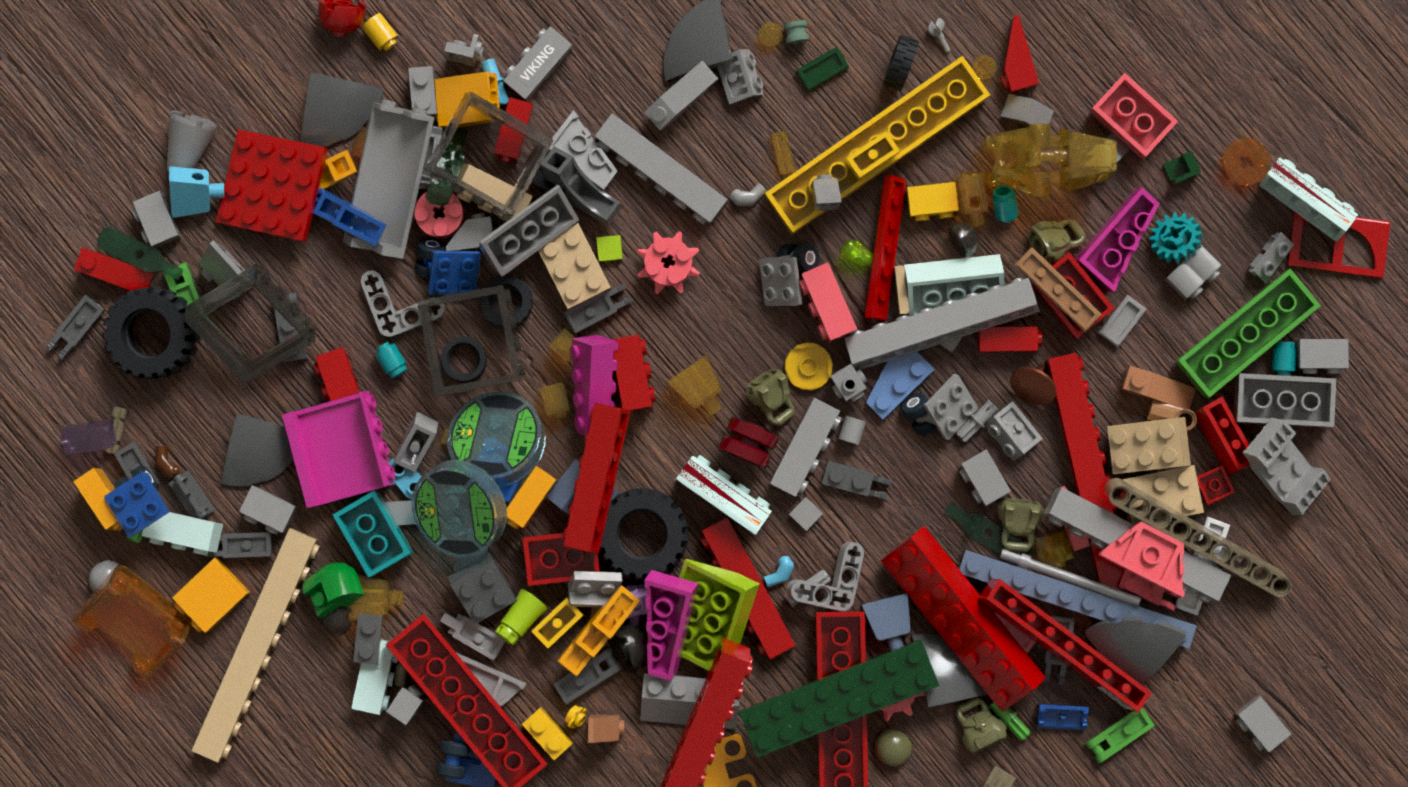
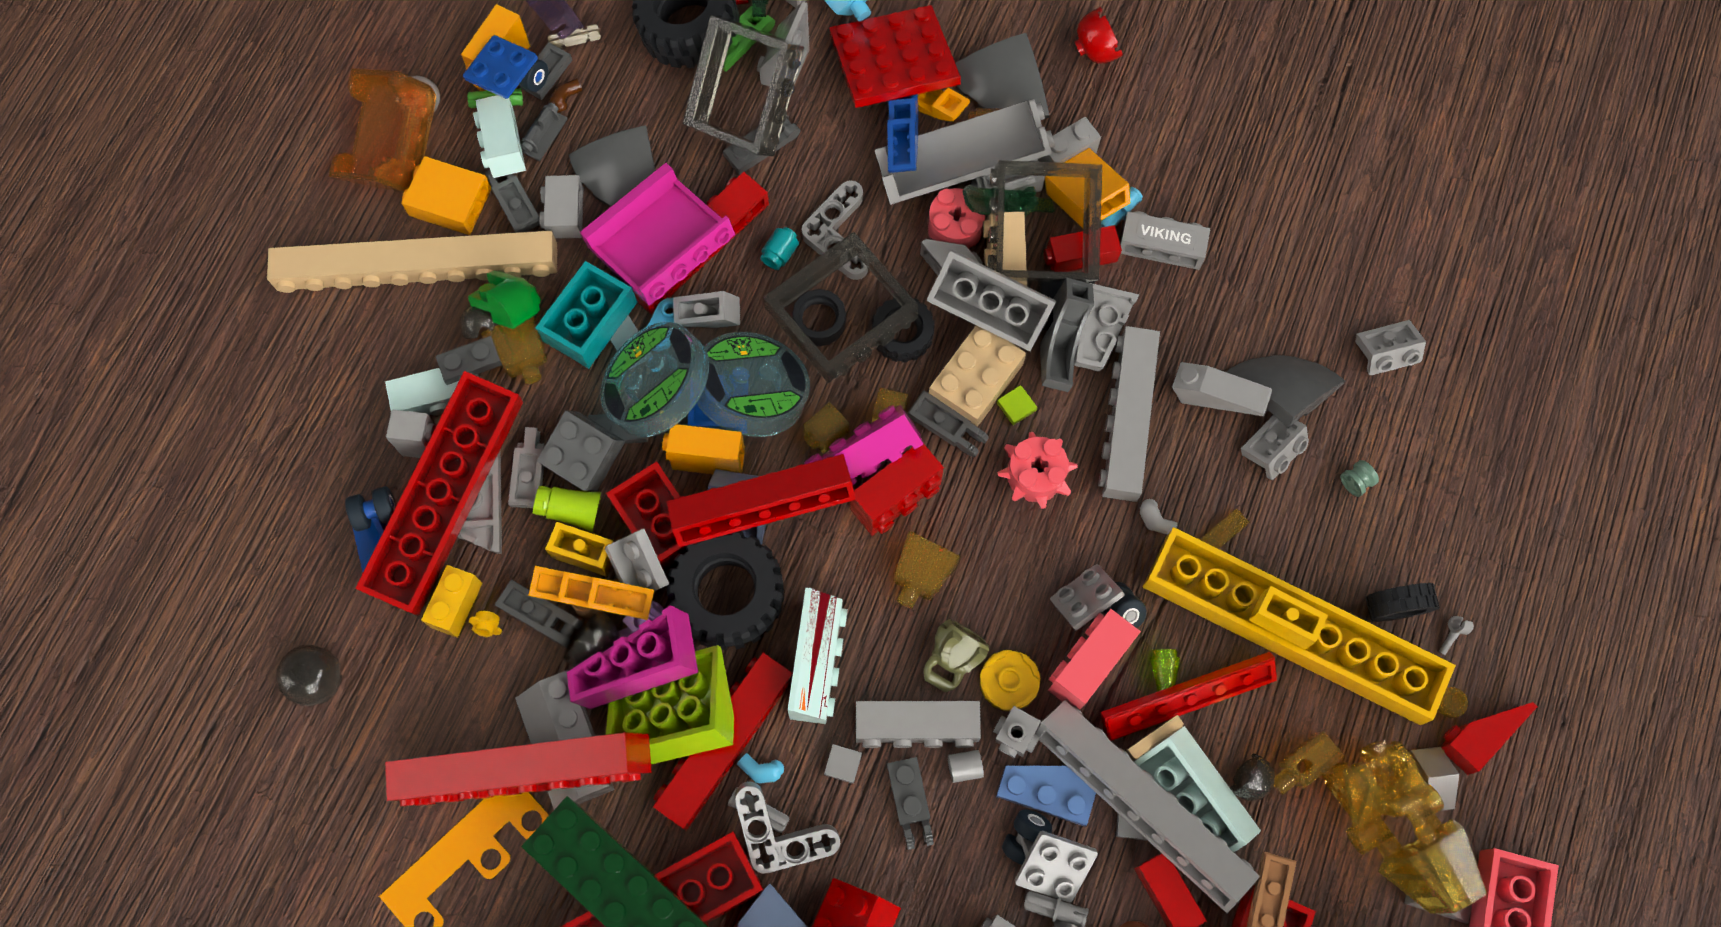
camera: 60 degrees right, 15 degrees down
(380, 32) = (1103, 82): yellow brick -> none
(447, 270) = (906, 253): blue plate -> none
(462, 54) = (1133, 162): light grey bracket -> none
(604, 728) = (481, 655): nougat slope -> none
(749, 440) = (892, 653): dark red wheel -> none
(770, 34) = (1339, 454): clear yellow plate -> none
(822, 69) = (1337, 528): dark green tile -> none
(826, 193) = (1213, 588): light grey slope -> none
(932, 200) = (1273, 721): yellow brick -> none
(1004, 204) = (1320, 806): teal brick -> none
(1052, 239) = (1315, 887): olive piece -> none

